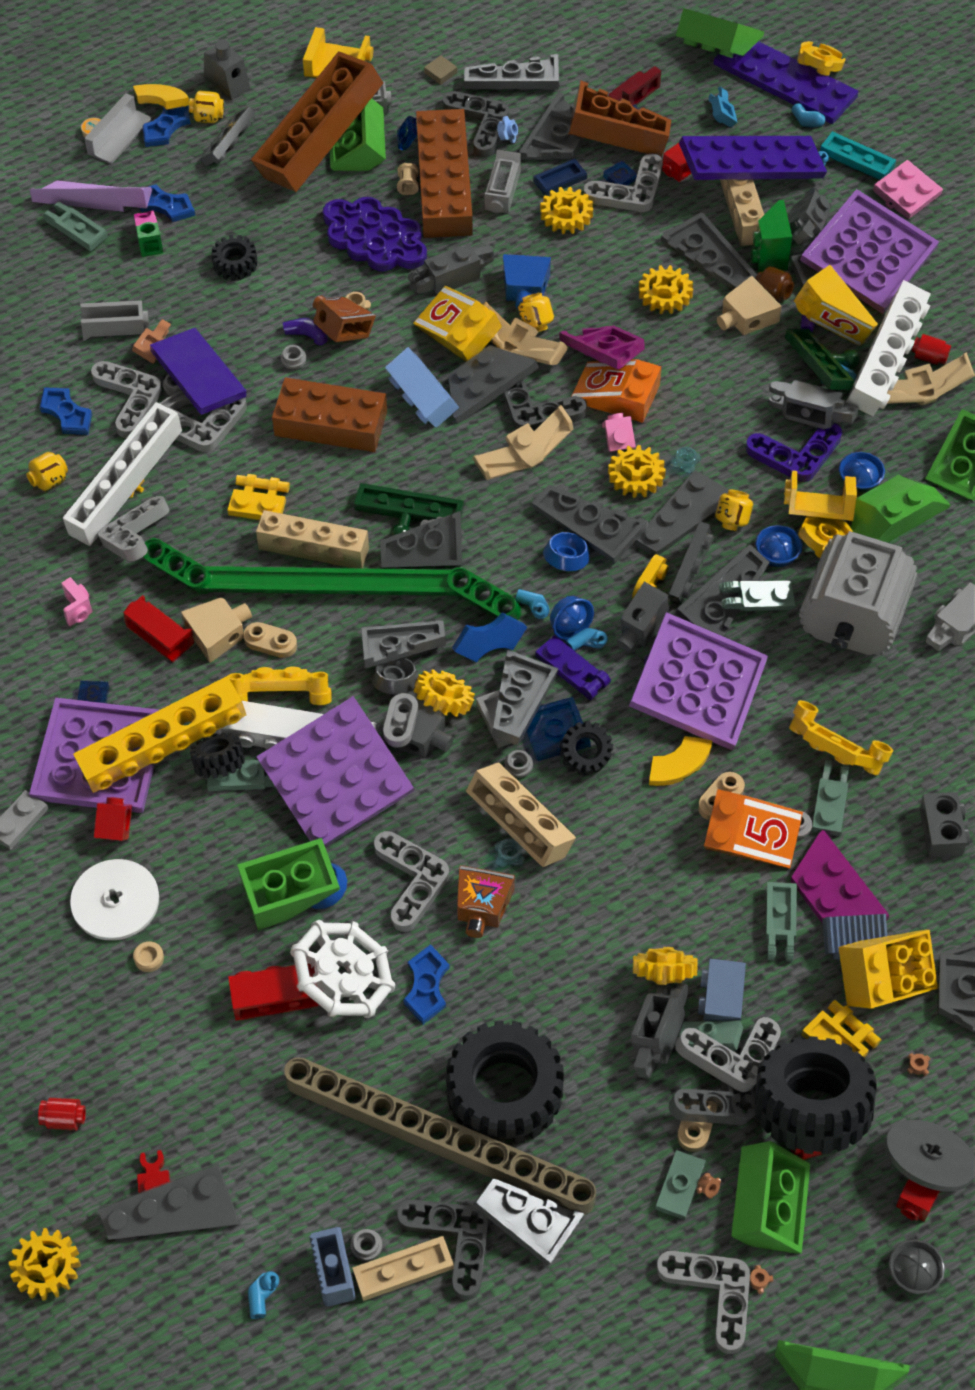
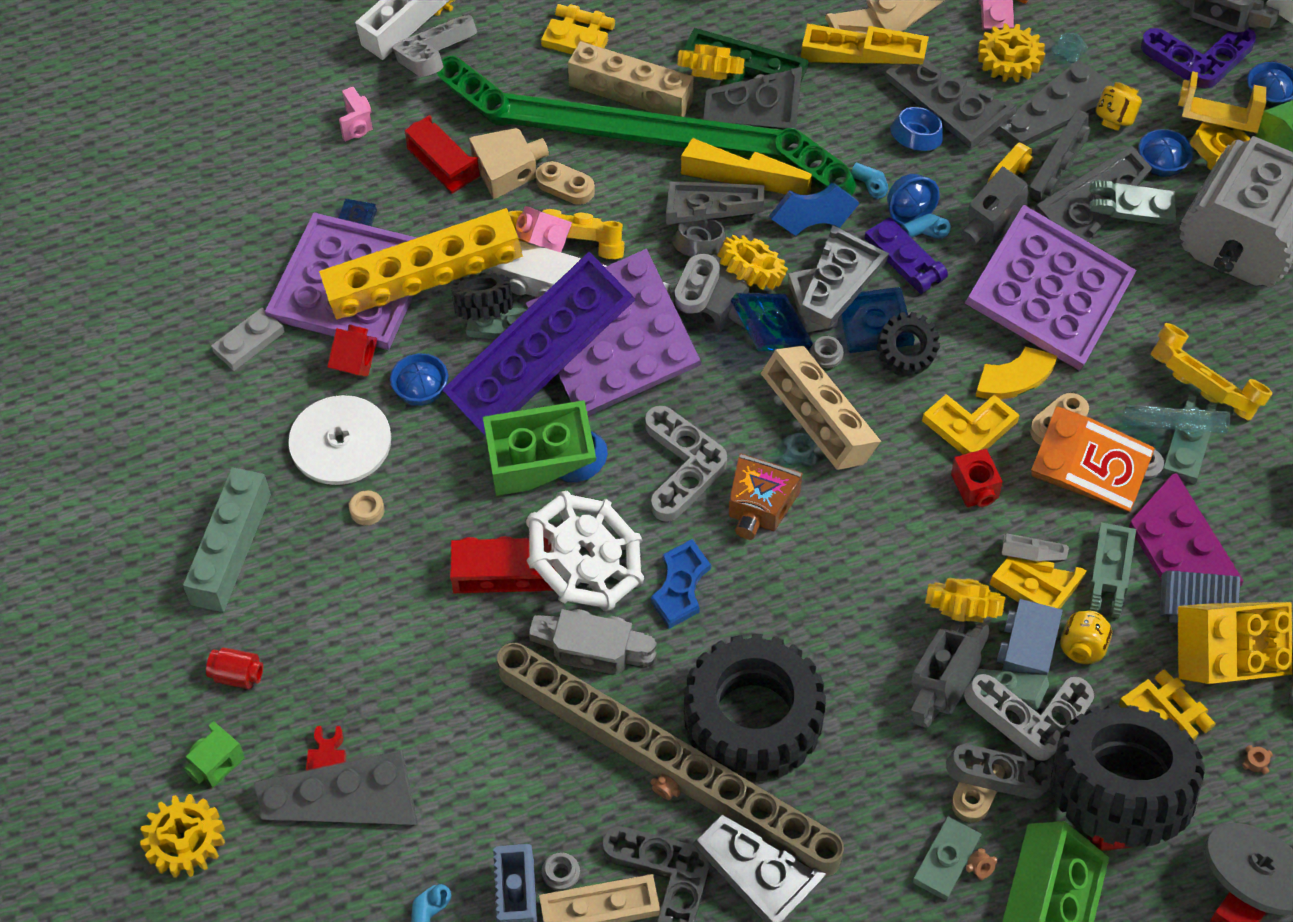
camera: 10 degrees right, 0 degrees up
(34, 1003) = (227, 540): none -> sand green brick
(58, 1193) = (213, 757): none -> bright green brick
(174, 835) = (419, 379): none -> blue hat
(259, 688) = (542, 229): none -> bright pink bracket
(274, 792) = (540, 342): none -> dark purple plate
(361, 1045) = (593, 641): none -> light grey hinge
(380, 515) = (710, 61): none -> yellow gear
(400, 607) = (719, 165): none -> yellow slope
(441, 1160) = (665, 787): none -> nougat piece
(468, 744) = (770, 321): none -> clear blue tile
(519, 481) = (876, 46): none -> yellow slope
(648, 818) = (970, 431): none -> yellow plate
(660, 847) = (976, 466): none -> red brick
(714, 912) = (1033, 549): none -> light grey tile
(721, 940) = (1036, 581): none -> yellow wing
(767, 982) = (1086, 635): none -> yellow head
(826, 783) = (1182, 419): none -> clear light blue pin

